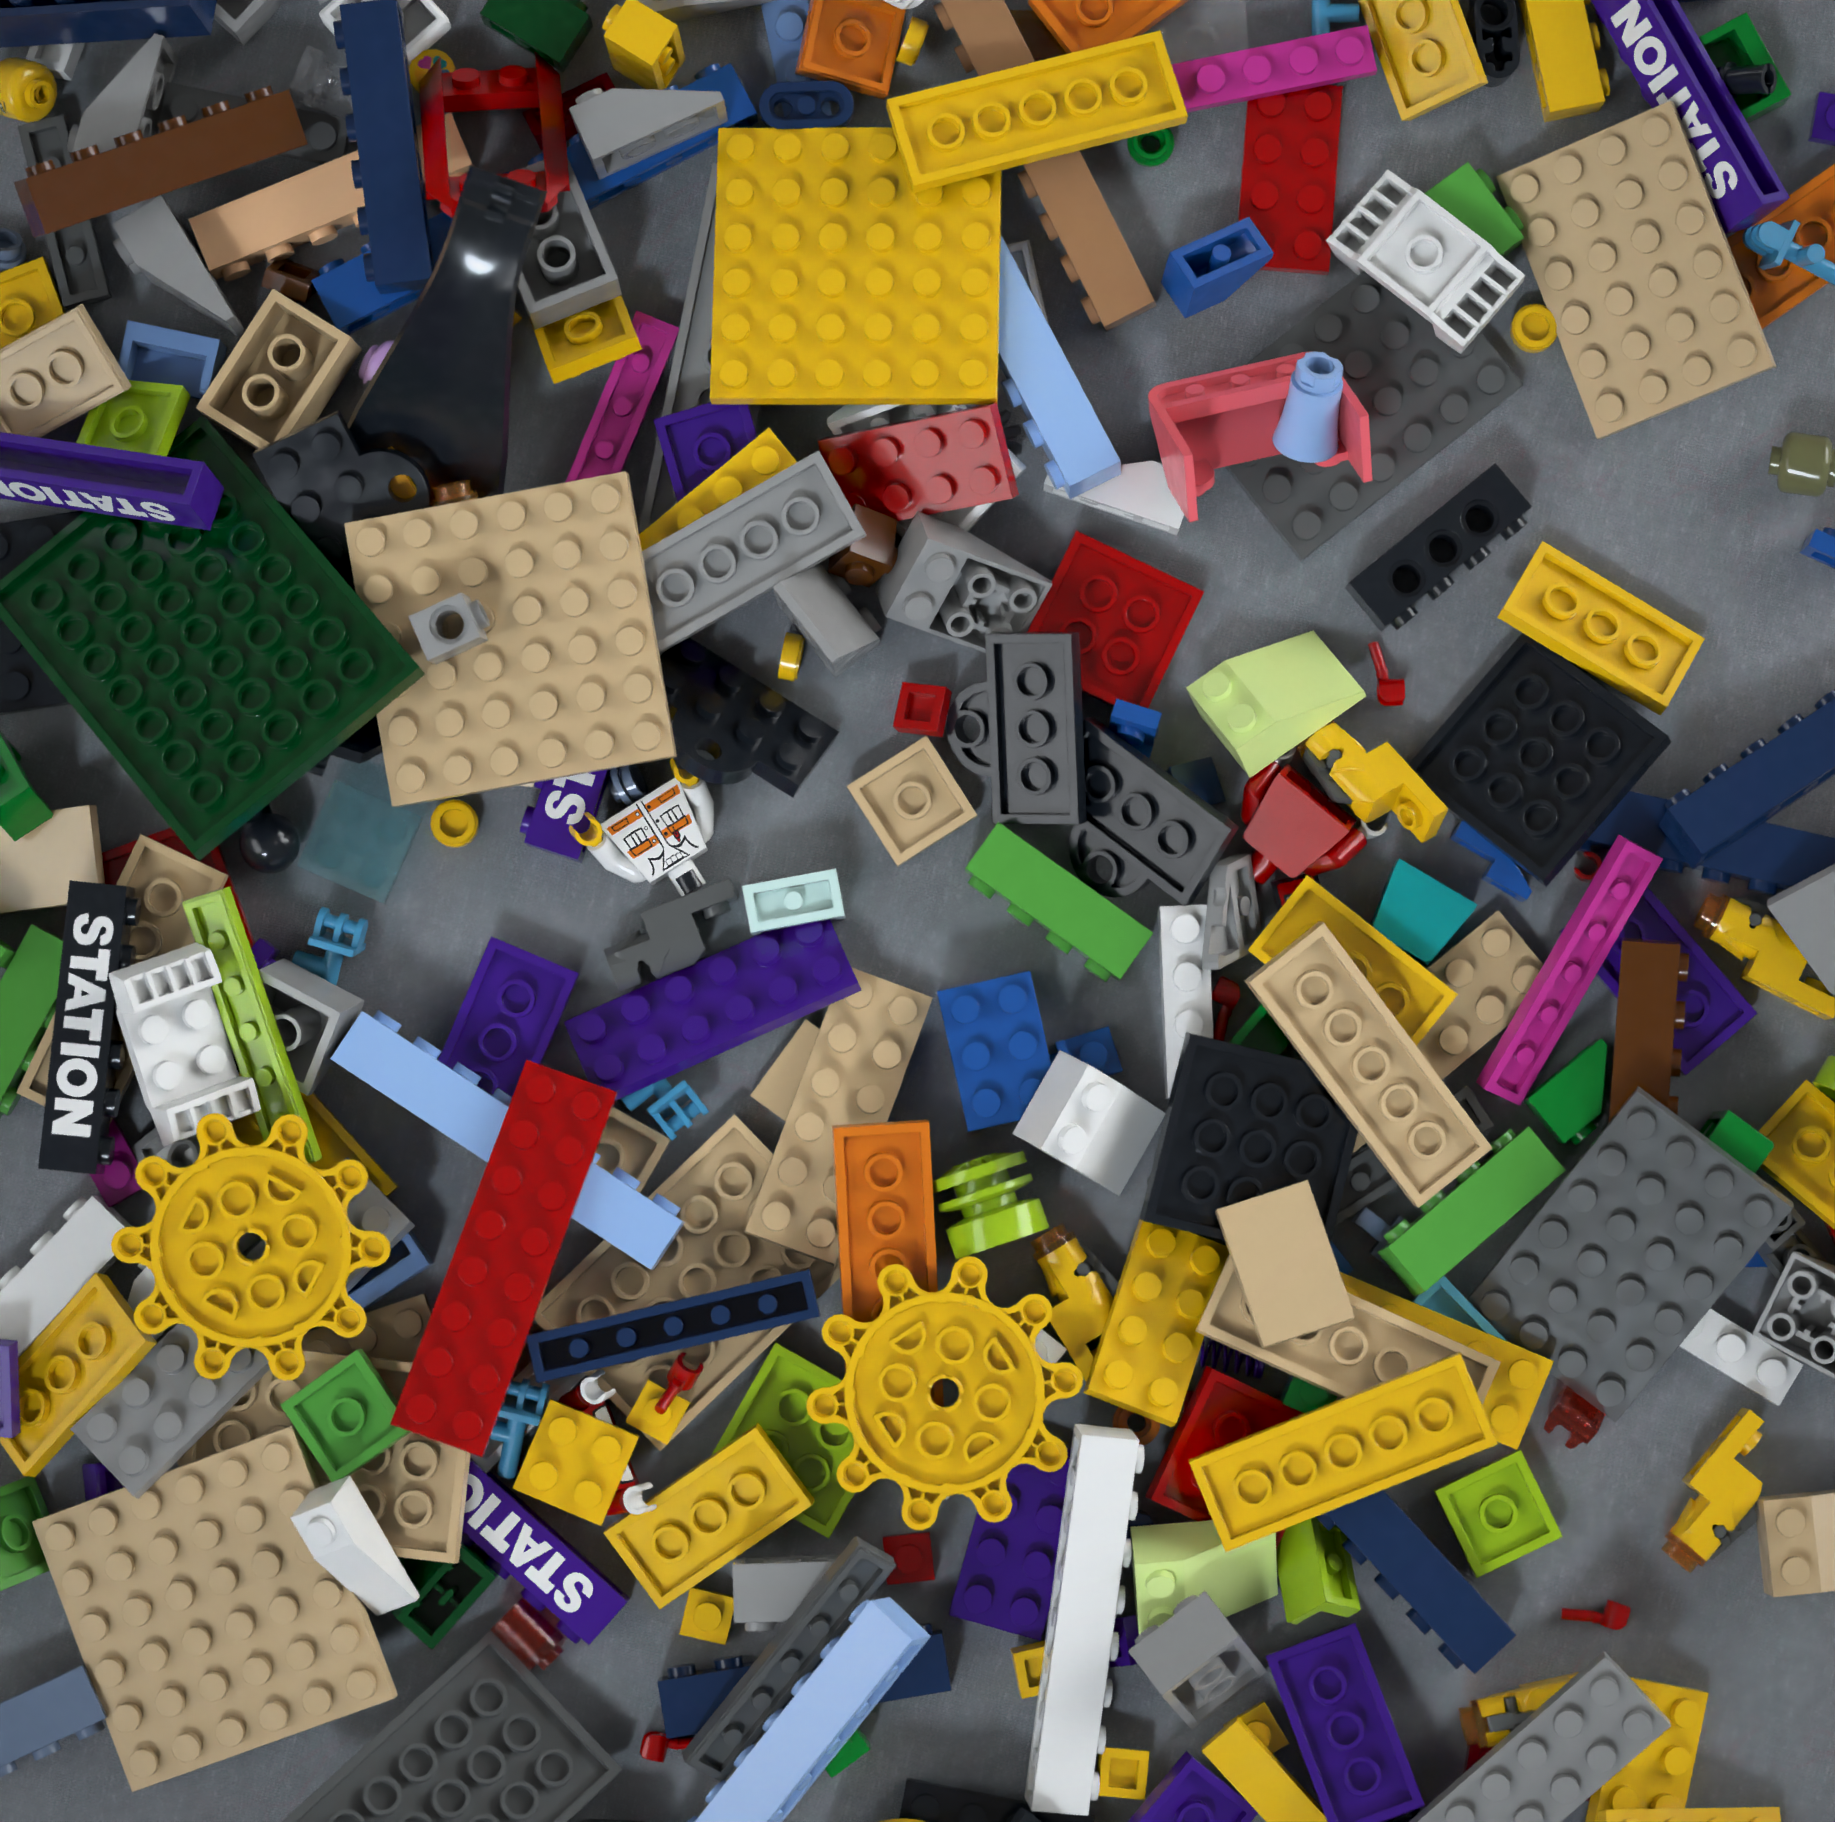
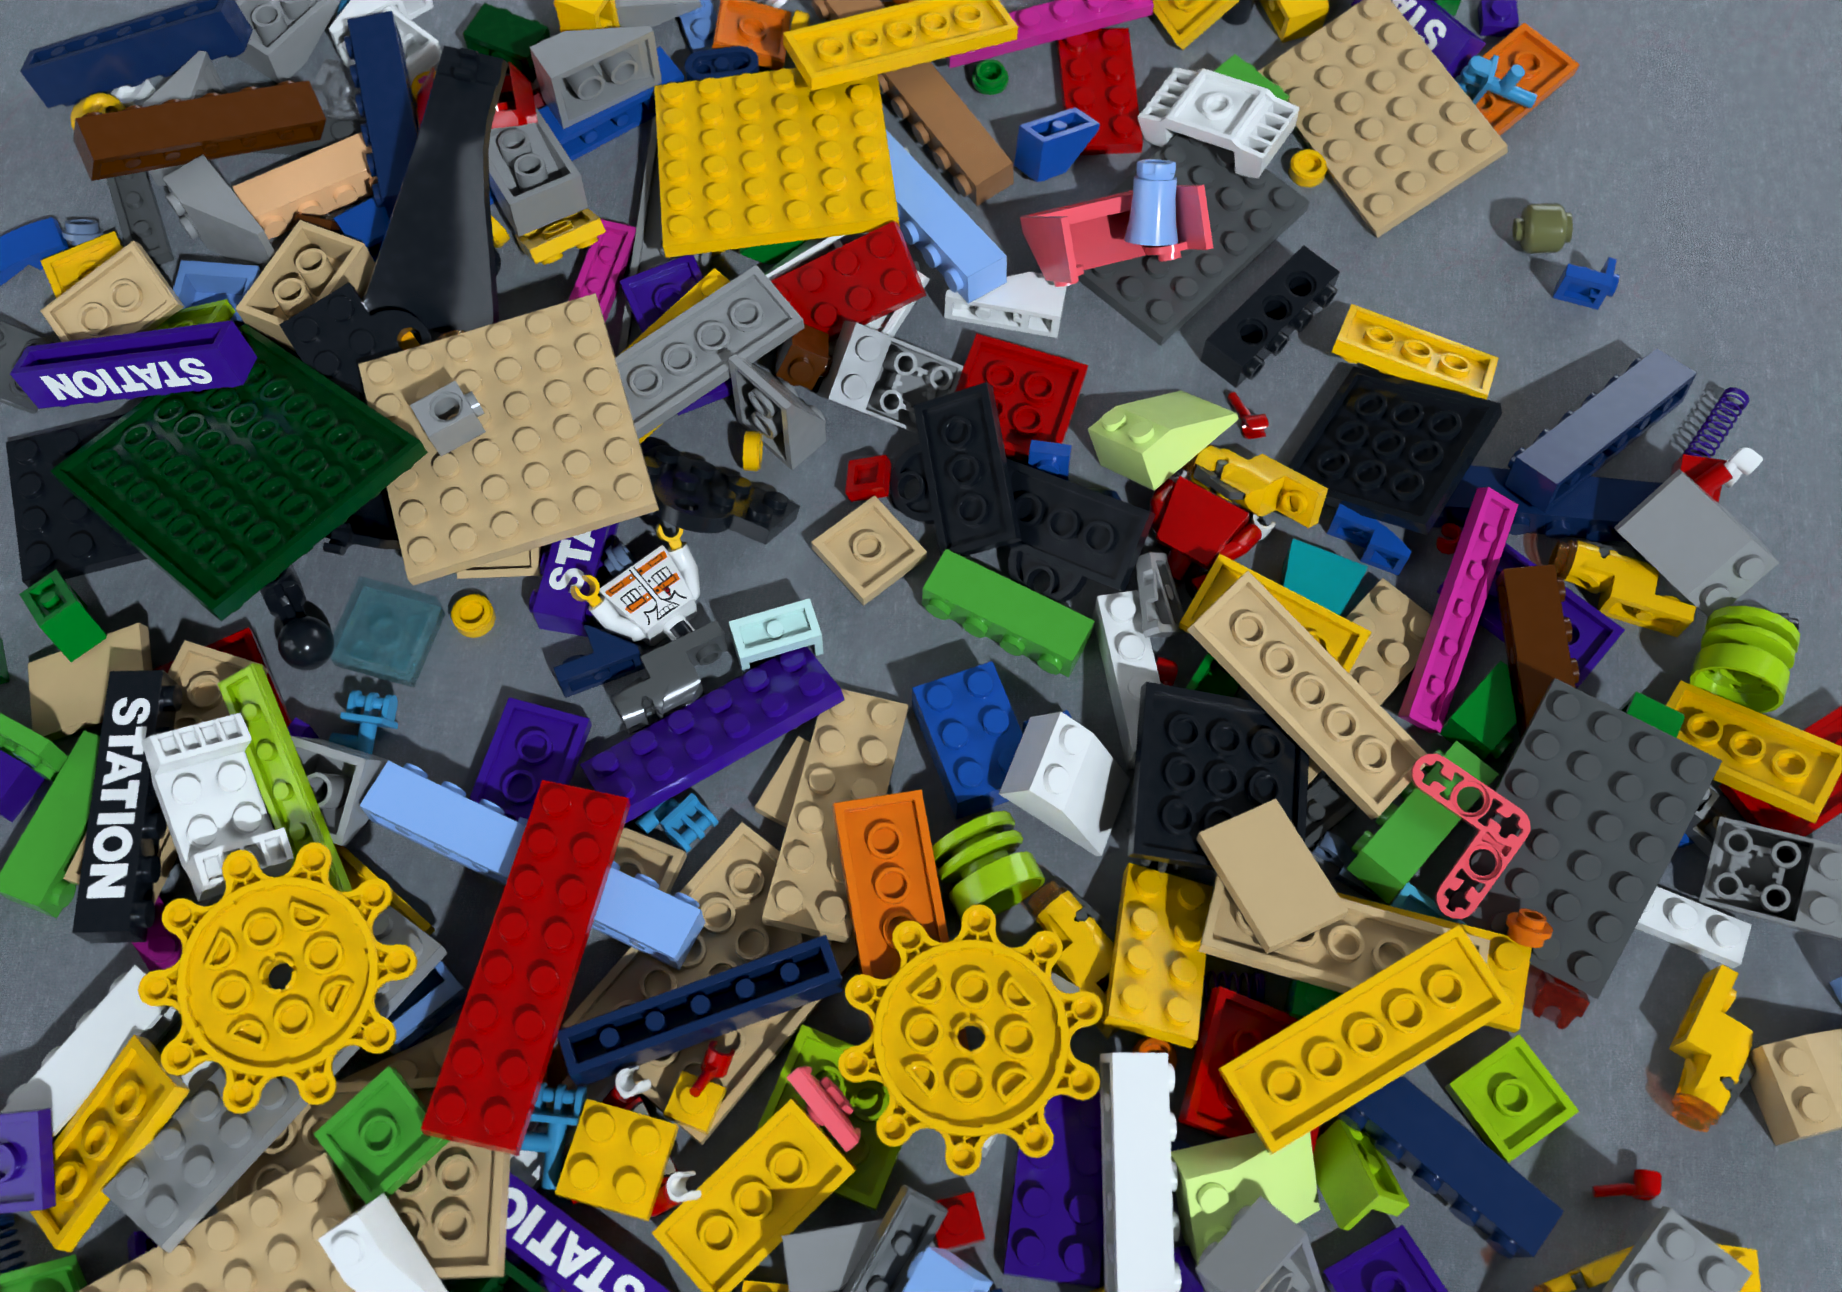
camera: 15 degrees left, 20 degrees down
(604, 903) = (610, 661): none -> dark blue slope
(791, 1436) = (826, 1106): none -> coral plate
(1527, 1248) = (1486, 838): none -> coral beam
(1551, 1348) = (1528, 928): none -> orange plate

